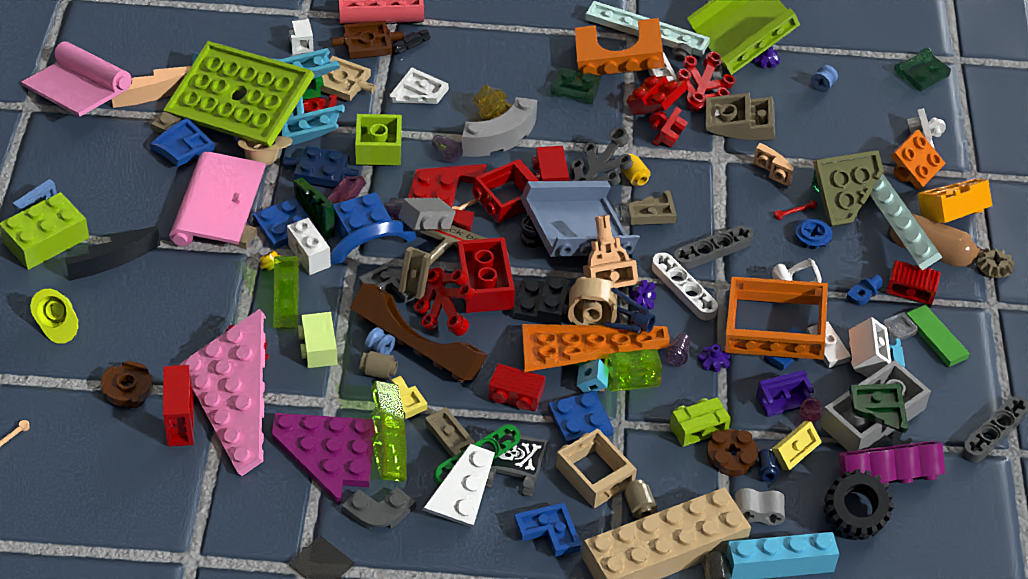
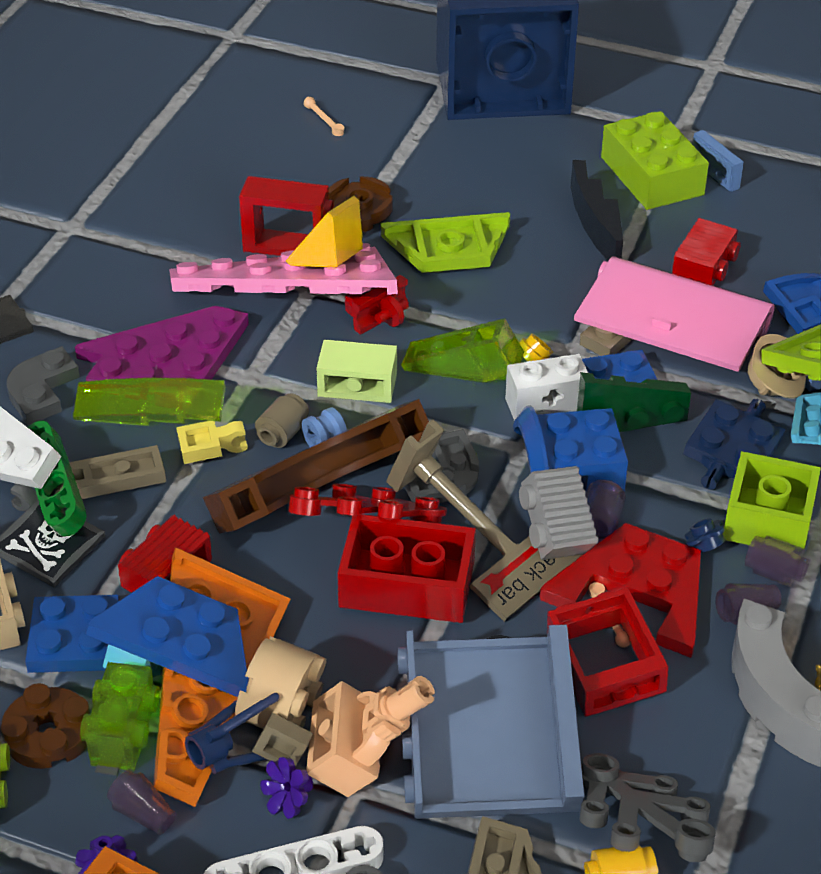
camera: 110 degrees right, 5 degrees down
(54, 315) = (503, 158): neon yellow piece -> none
(147, 194) = (706, 252): none -> red brick
(164, 325) = (448, 241): none -> lime wing
(215, 360) = (333, 238): none -> yellow slope
(347, 189) = (650, 446): clear pink plate -> none
(411, 168) = (705, 534): none -> dark blue plate
(414, 138) = (777, 560): none -> clear purple brick
(543, 301) = (346, 639): black plate -> none
(550, 164) = (654, 735): red brick -> none
(582, 346) = (178, 632): none -> blue wing
(624, 306) = (282, 739): none -> dark tan plate
(651, 396) = (39, 706): none -> reddish brown plate

